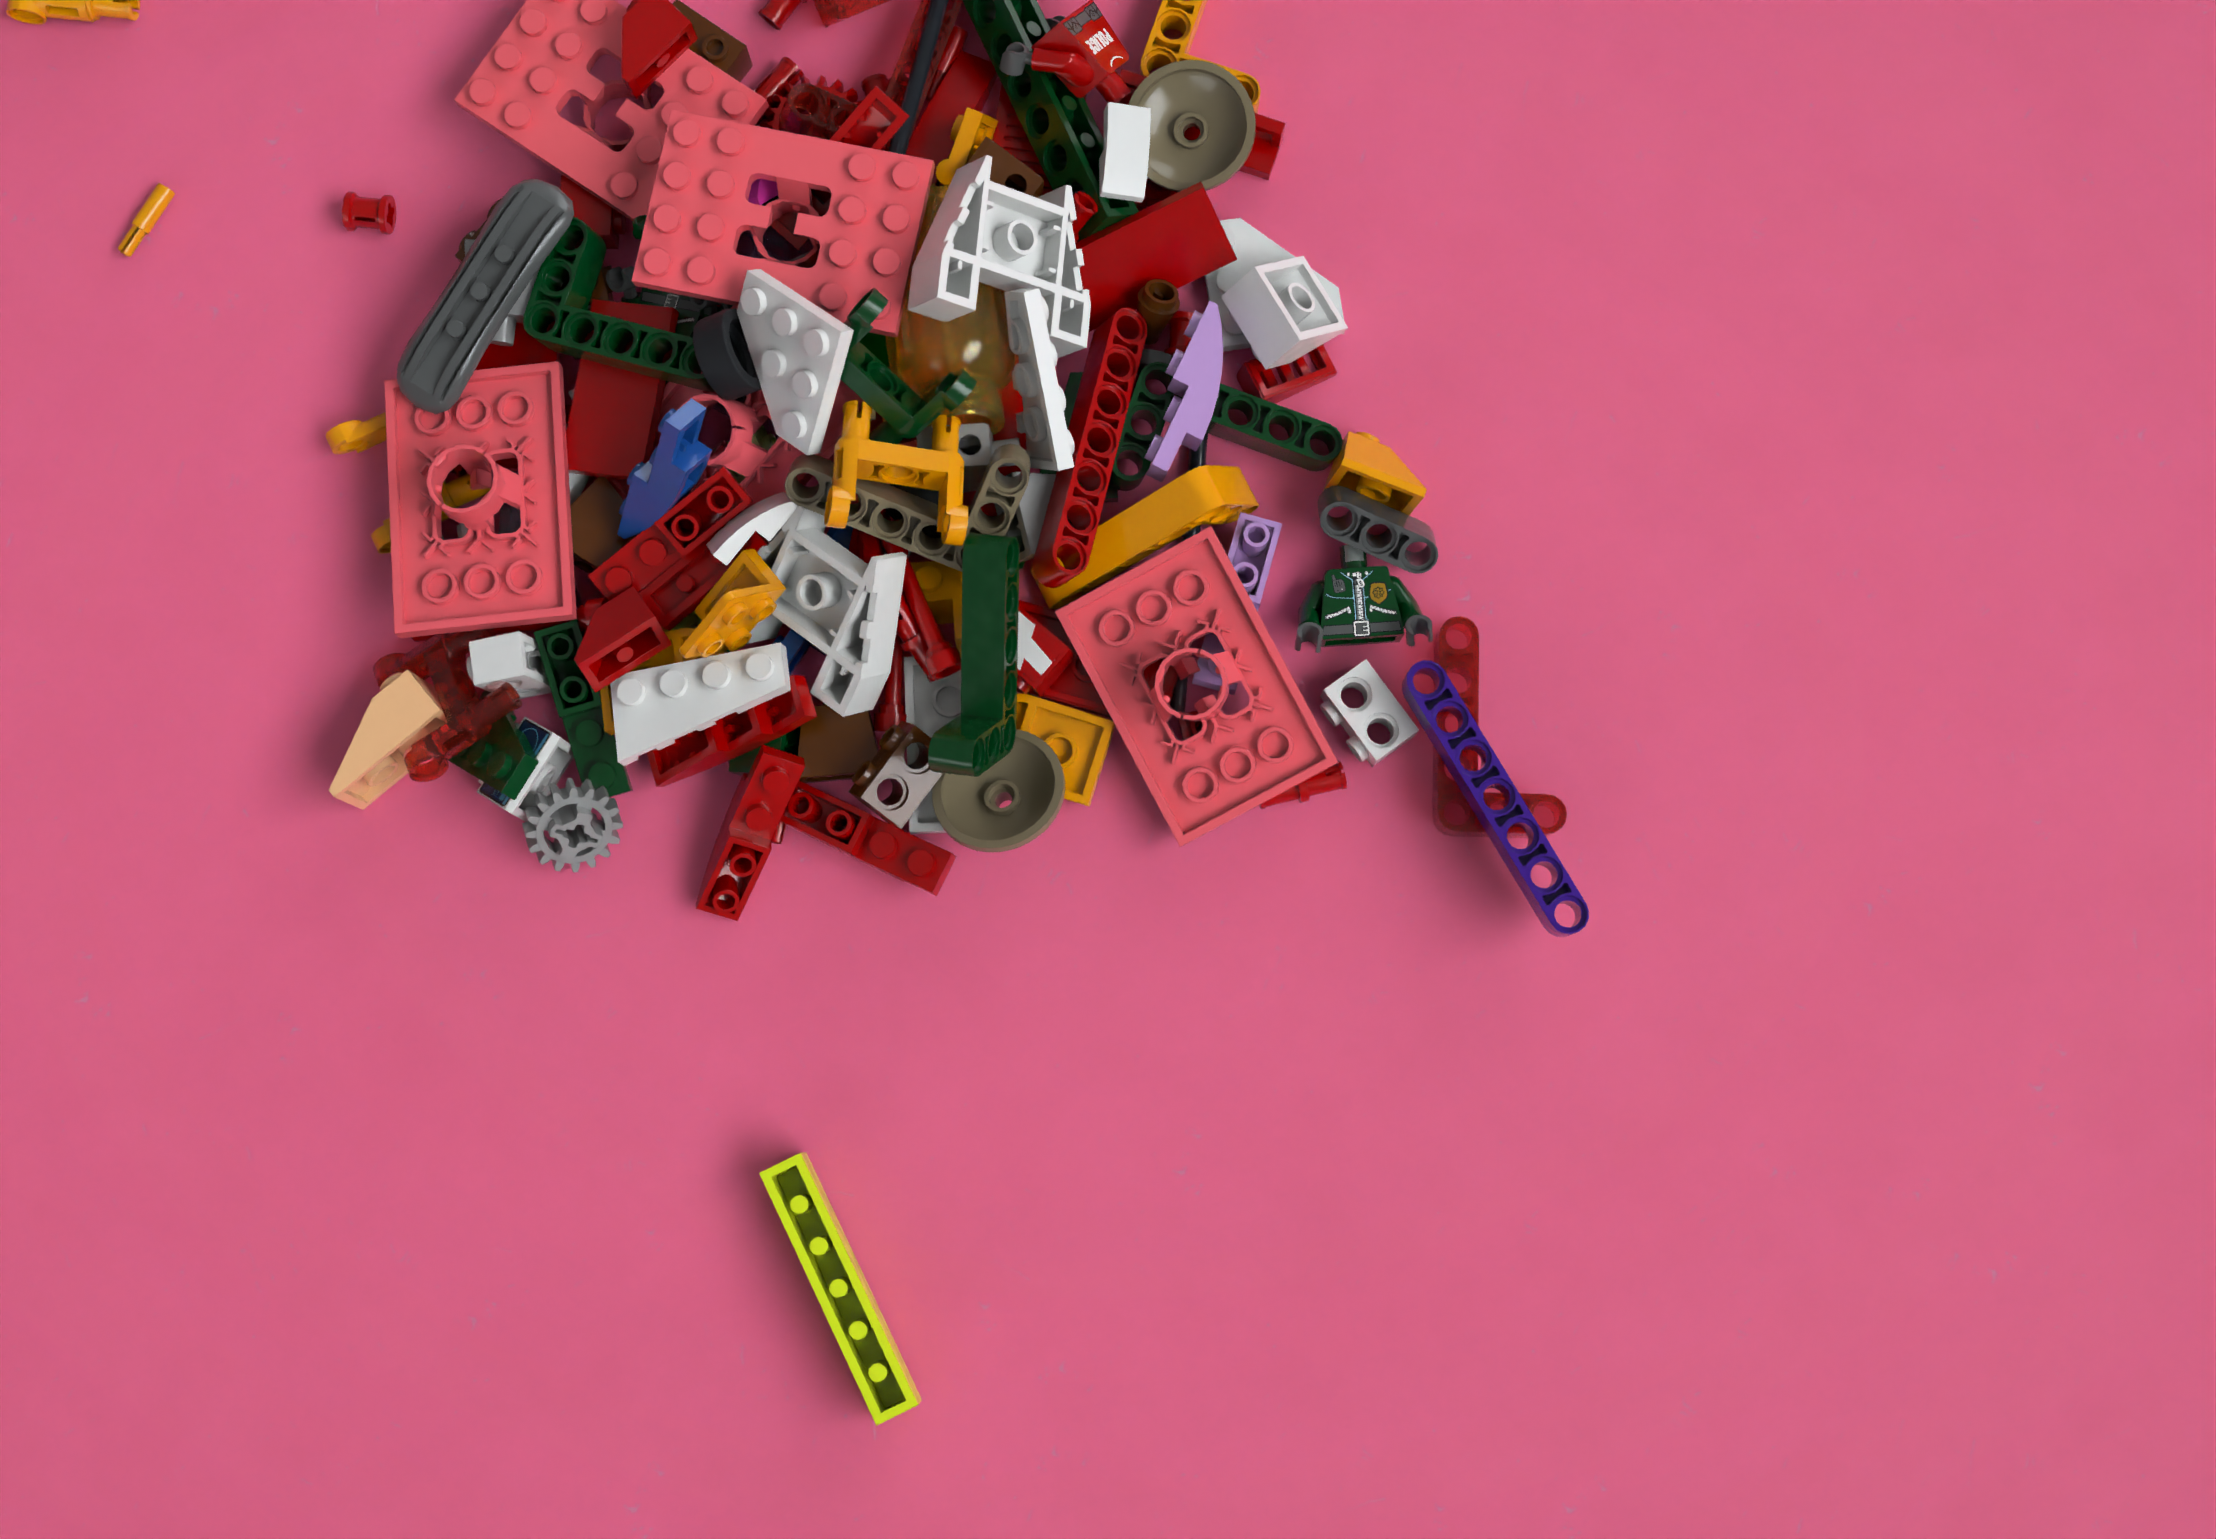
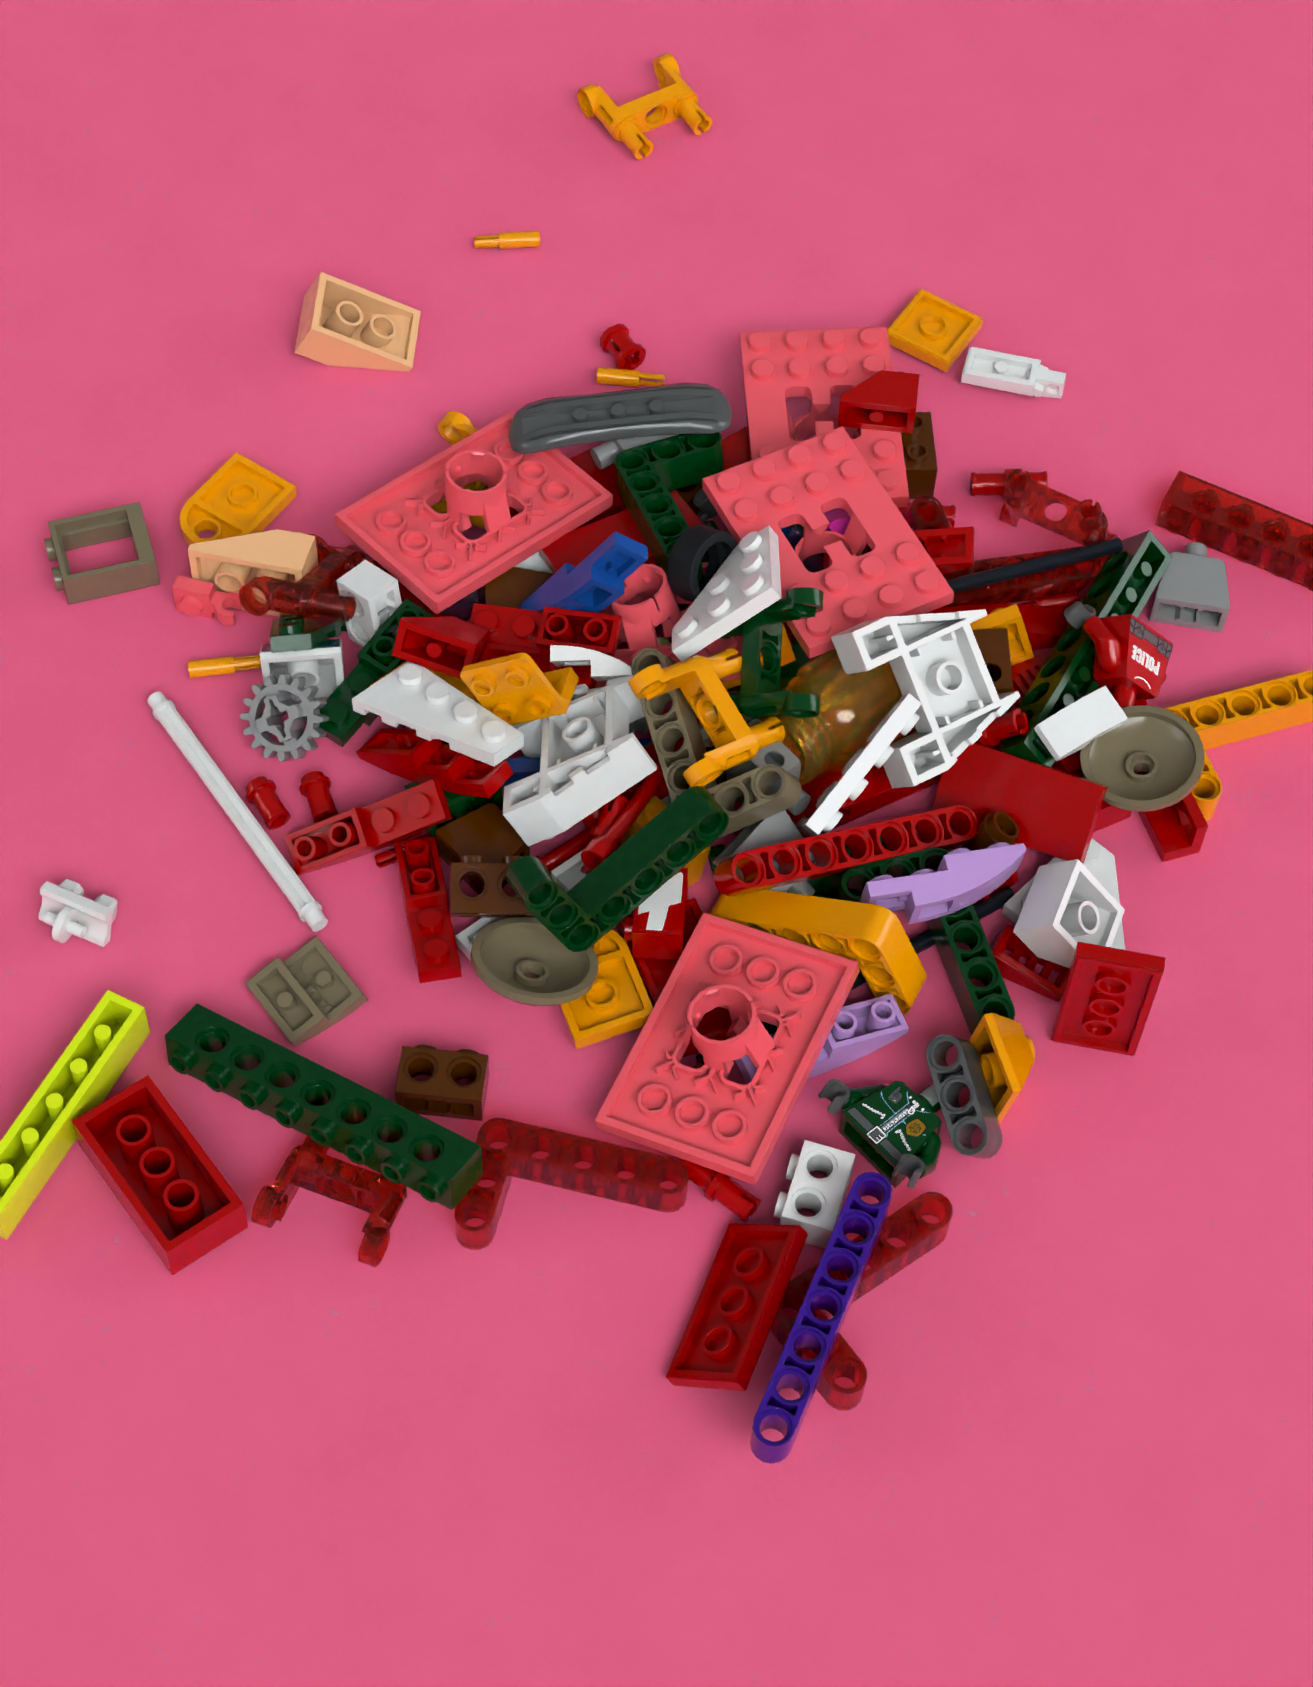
camera: 50 degrees right, 25 degrees down
(151, 443) = (356, 327): none -> light nougat slope
(213, 853) = (96, 529): none -> dark tan window
(282, 701) = (235, 501): none -> light orange plate
(371, 810) = (201, 599): none -> coral plate
(405, 232) = (626, 377): none -> light orange pin
(459, 836) = (222, 665): none -> light orange pin
(629, 929) = (238, 812): none -> white piece
(642, 1147) = (76, 915): none -> white hips
(644, 897) = (262, 794): none -> red pin
(673, 848) = (316, 789): none -> red pin
(852, 1110) = (325, 1106): none -> dark green brick
(864, 993) = (306, 992): none -> dark tan slope
(963, 1239) = (160, 1174): none -> red brick
(1040, 1106) = (344, 1182): none -> clear red connector
(1051, 949) = (440, 1093): none -> reddish brown brick
(1193, 903) = (559, 1171): none -> clear red beam
(1399, 351) = (1107, 998): none -> red tile
(1422, 852) = (737, 1306): none -> red tile

